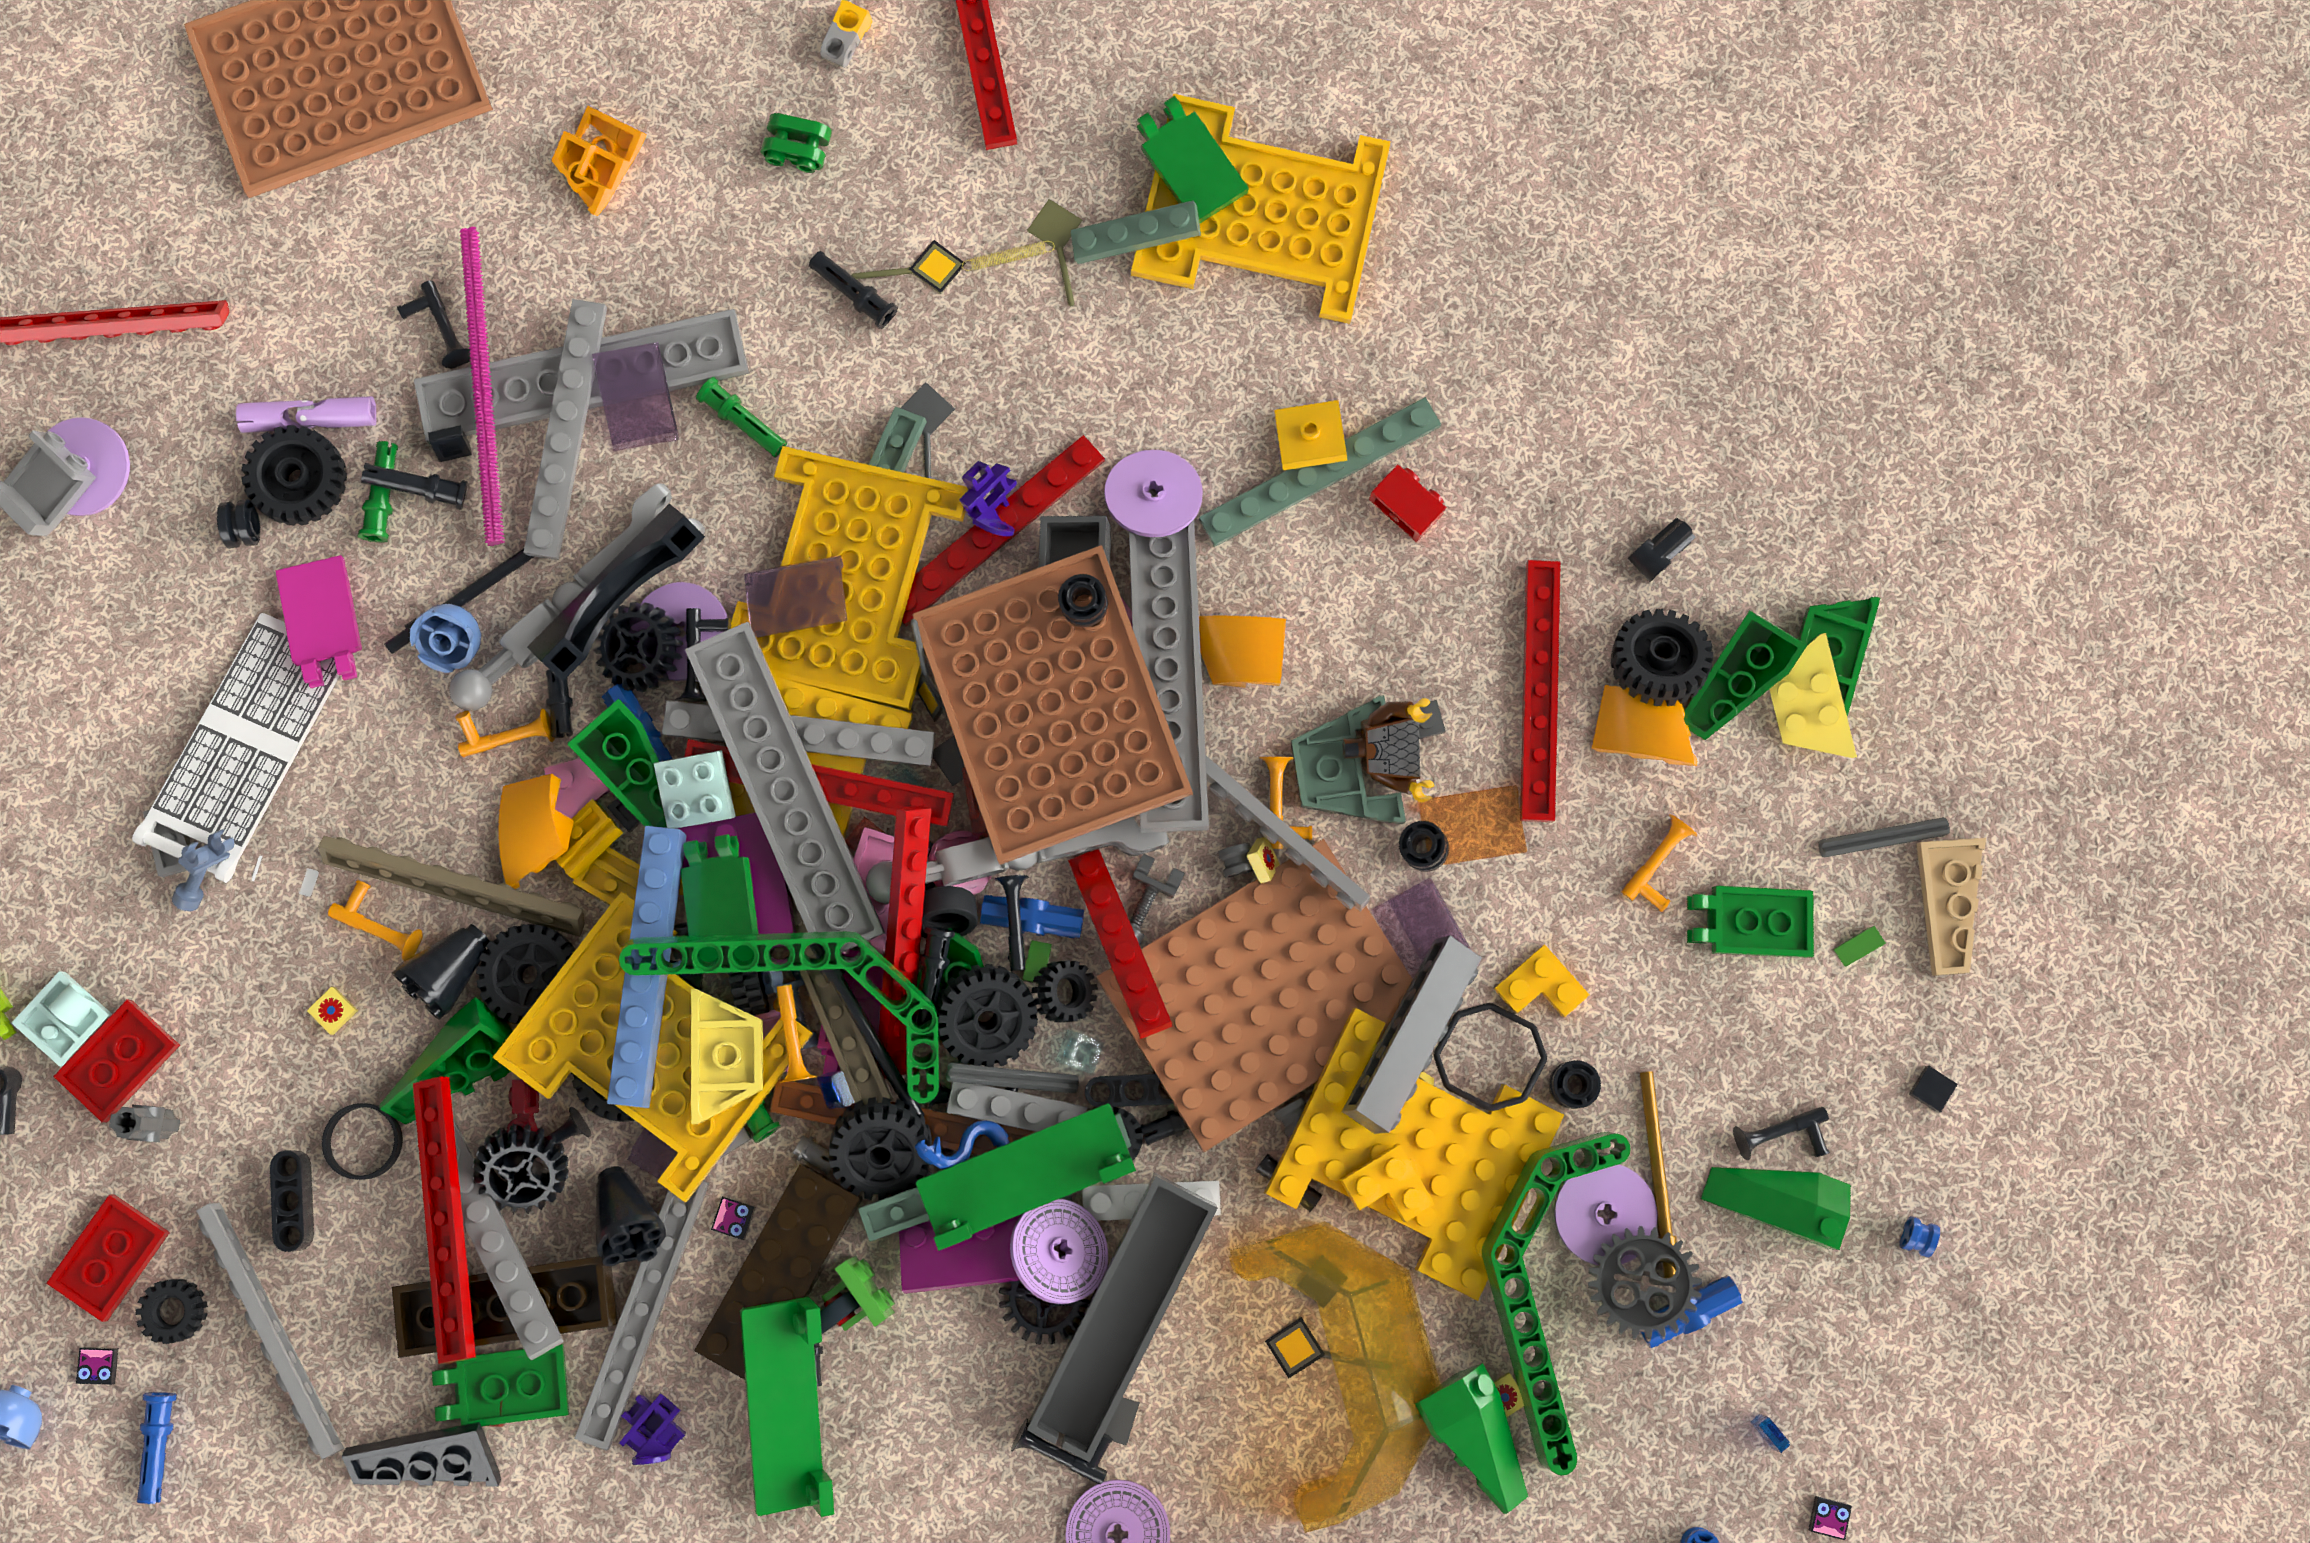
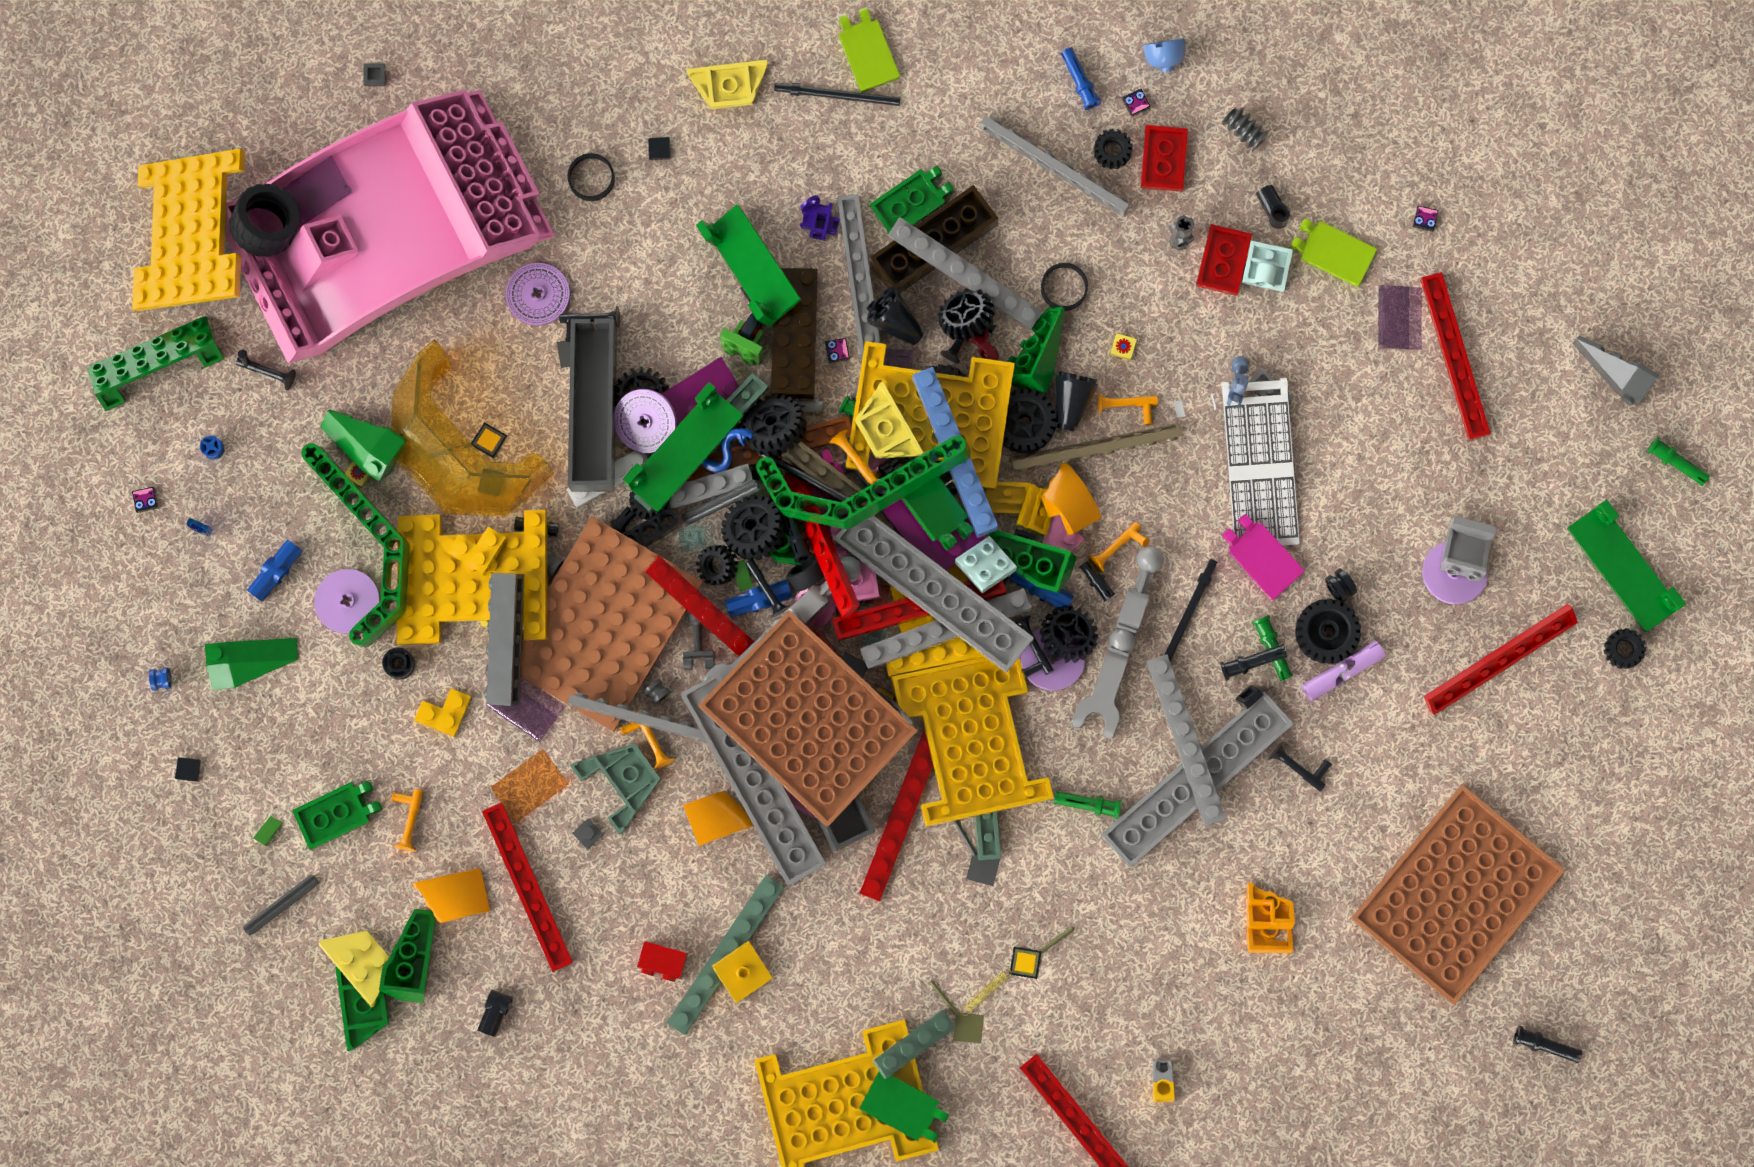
camera: 160 degrees right, 0 degrees up
(281, 1186) = (1082, 226): black beam -> none
(438, 1455) = (922, 151): wing -> none
(444, 1220) = (990, 265): red plate -> none
(446, 637) = (1180, 581): medium blue cylinder -> none
(481, 387) = (1249, 739): dark pink axle -> none
(571, 634) = (1107, 614): black arch -> none
(635, 396) = (1157, 782): clear purple piece -> none
(795, 596) = (994, 710): piece -> none
(805, 156) = (1160, 982): green brick -> none
(835, 1090) = (816, 443): clear blue tile -> none
(864, 299) = (1057, 917): black pin -> none
(981, 510) = (915, 824): dark purple piece -> none
(1083, 585) = (826, 776): black wheel -> none
(1175, 483) = (825, 870): lavender piece -> none
(1263, 860) = (641, 698): light yellow tile -> none
(1392, 747) = (598, 802): torso -> none
(1413, 835) = (556, 747): black wheel -> none
(1471, 1098) = (423, 660): black piece -> none
(1638, 1314) = (312, 589): dark grey gear -> none
(1653, 677) = (465, 958): black wheel -> none
(1657, 1162) = (306, 604): pearl gold bar -> none
(1809, 1120) = (253, 714): black piece -> none
(1949, 893) = (227, 891): tan wing -> none

